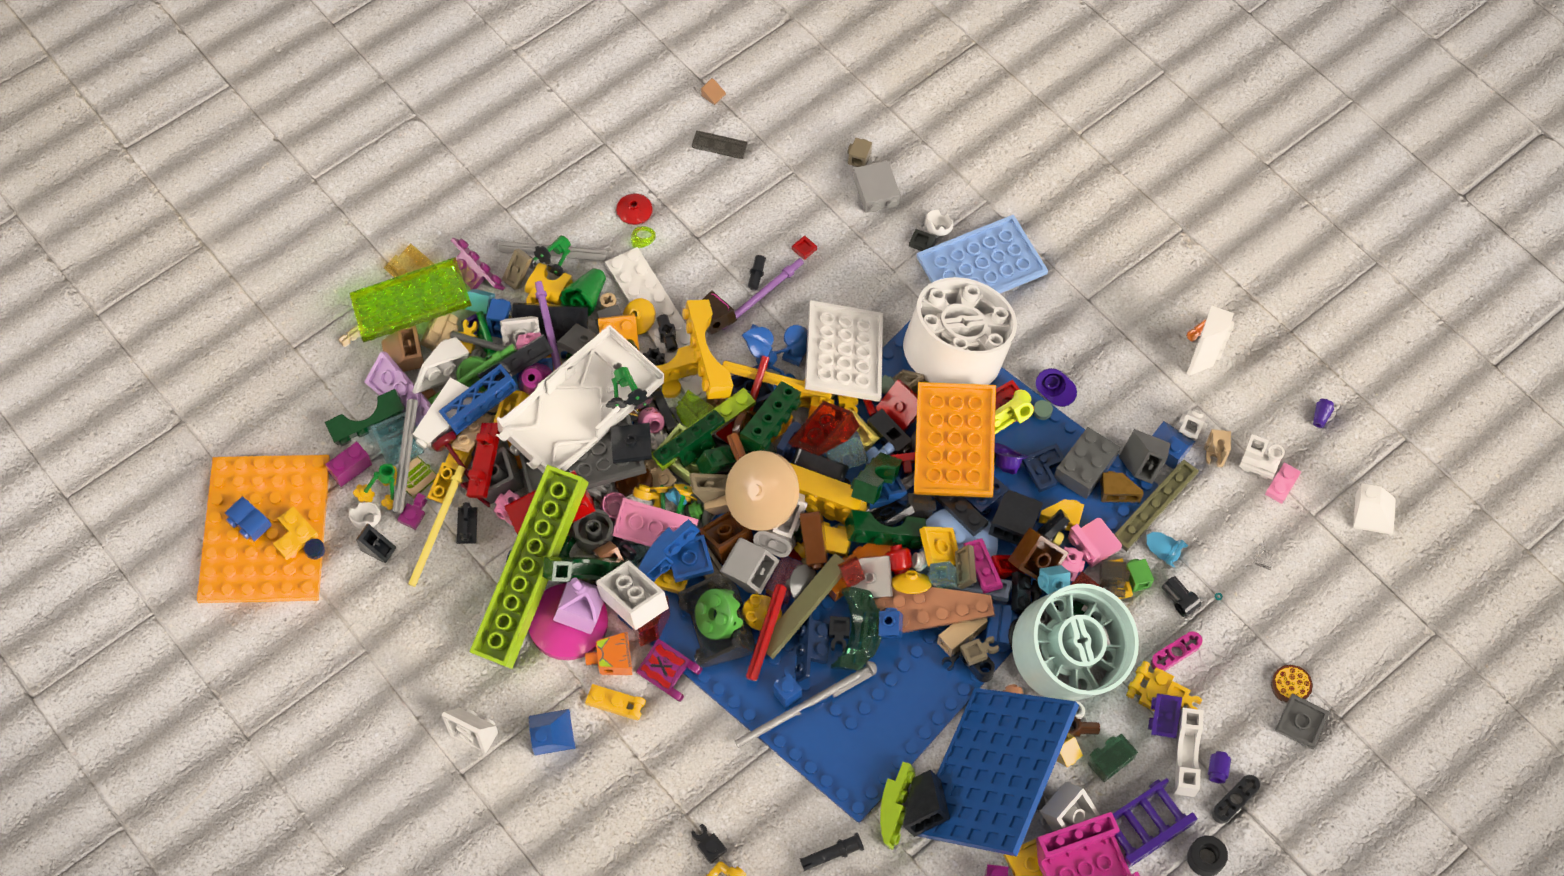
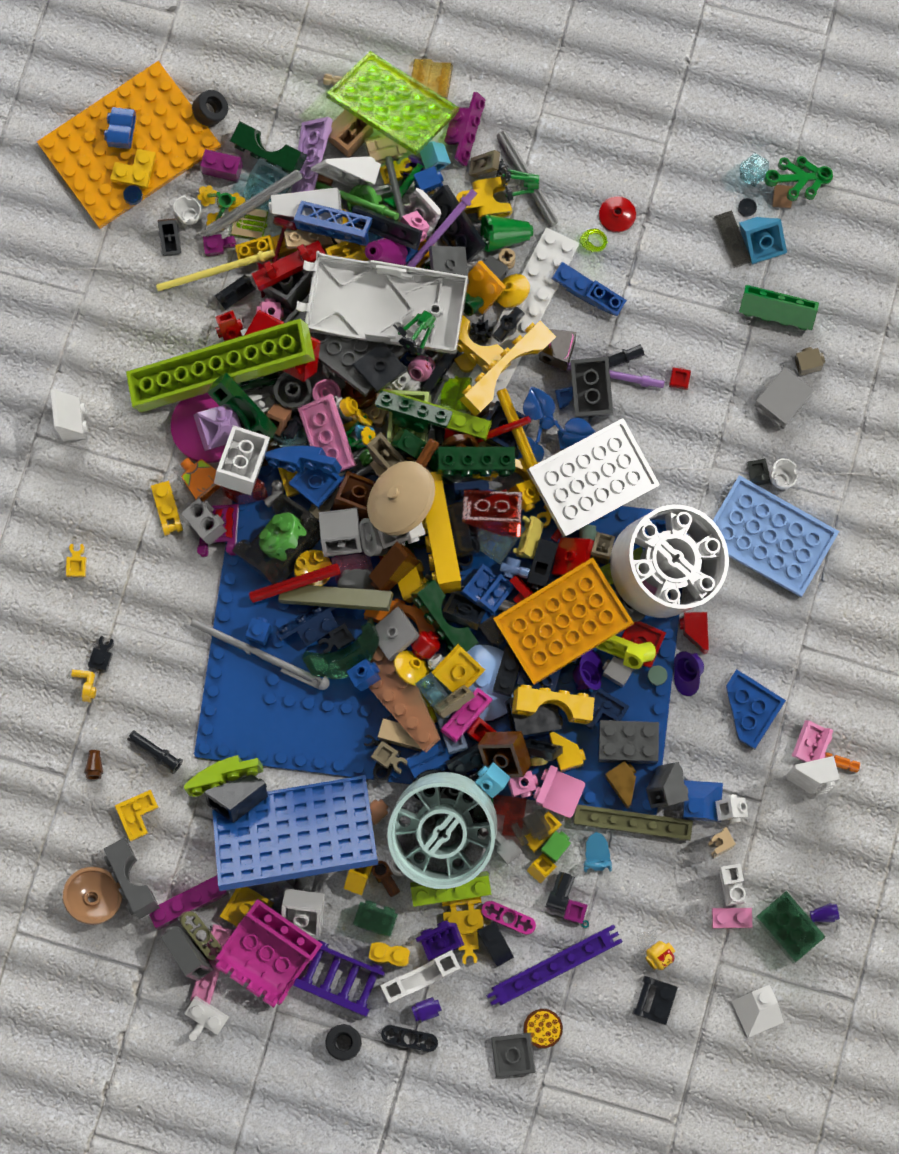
camera: 60 degrees right, 15 degrees up
(291, 440) = (201, 111): none -> black tyre
(495, 546) = (228, 326): none -> red brick
(551, 732) = (110, 476): blue slope -> none
(608, 812) = (76, 564): none -> yellow plate
(653, 679) = (204, 521): none -> light grey brick
(673, 602) = (277, 489): none -> light grey arm
(677, 94) = (754, 169): none -> clear light blue brick
(681, 265) = (587, 290): none -> blue slope
(701, 121) = (747, 207): none -> black piece
(717, 56) = (822, 176): none -> green plant
(736, 121) = (763, 238): none -> dark azure slope
(767, 306) = (592, 387): none -> dark grey brick
(802, 144) = (778, 307): none -> green brick
(851, 572) = (381, 615): clear red bracket -> none
(870, 480) = (497, 580): dark green arch -> none
(1020, 435) = (616, 671): none -> light grey brick
(1024, 360) = (696, 629): none -> red slope
(1034, 479) = (577, 707): none -> yellow arch
(1114, 702) = (475, 888): none -> lime brick
(1115, 360) = (752, 708): none -> blue plate
(1149, 600) = (541, 868): none -> yellow slope
(1151, 766) = (383, 953): none -> yellow brick
(1175, 336) = (812, 742): none -> bright pink bracket
(1193, 674) = (495, 944): none -> black slope
(1206, 594) = (575, 911): none -> magenta plate
(1242, 641) = (554, 966): none -> dark purple hinge
(1284, 552) = (660, 955): none -> yellow head
(1320, 442) = (789, 927): none -> clear green brick
(1323, 578) = (661, 1003): none -> black plate

